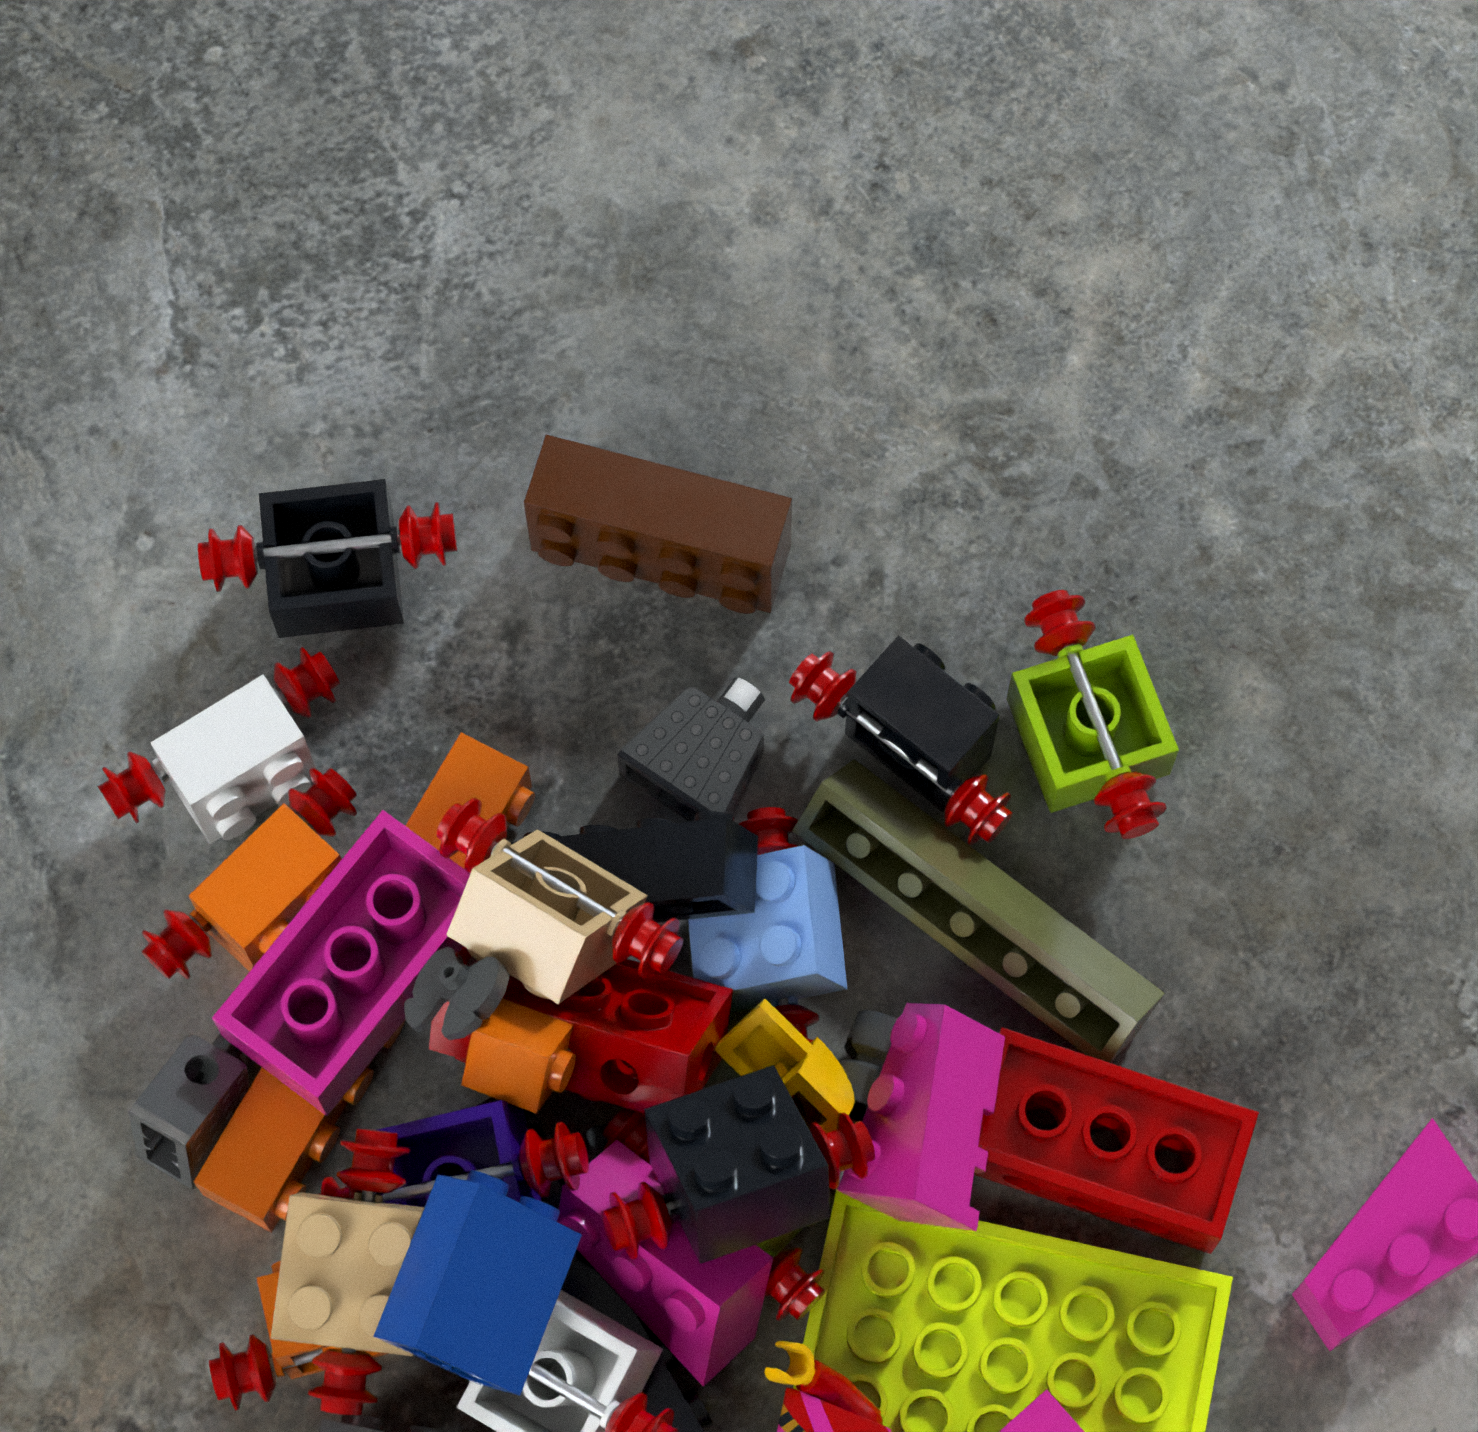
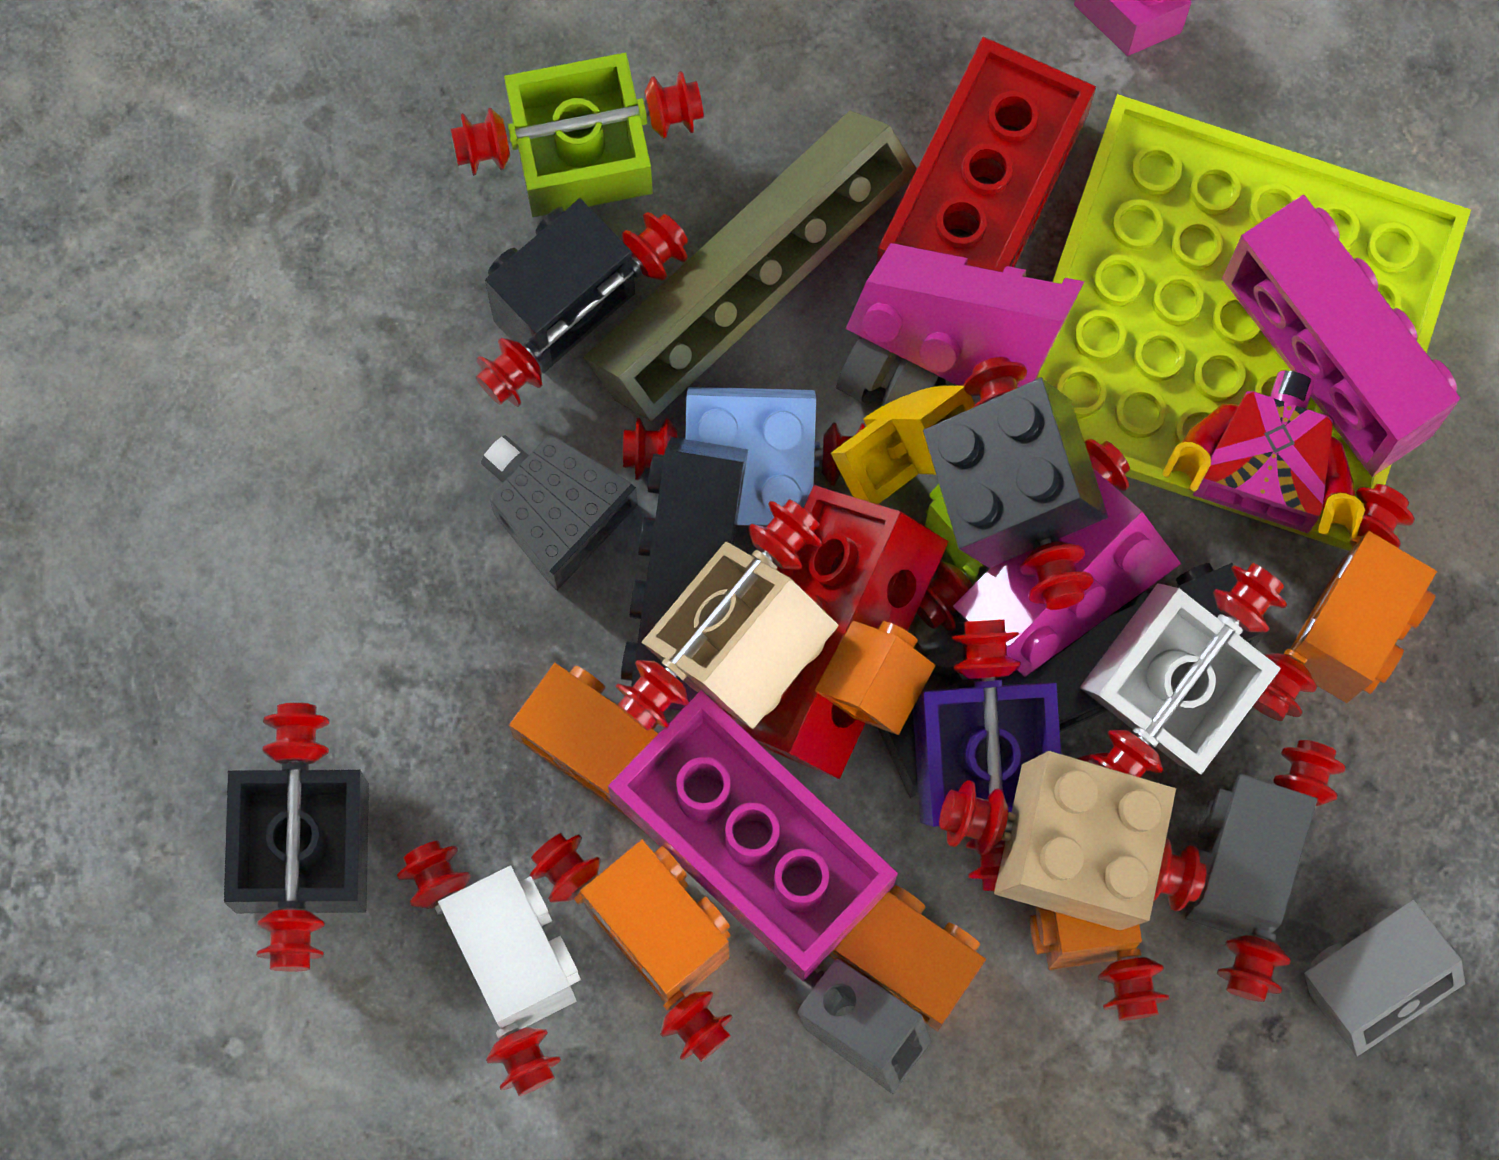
camera: 85 degrees left, 5 degrees up
(470, 990) = (816, 703): dark grey piece -> none
(479, 1281) = (1115, 716): blue brick -> none
(658, 525) = (315, 509): reddish brown brick -> none

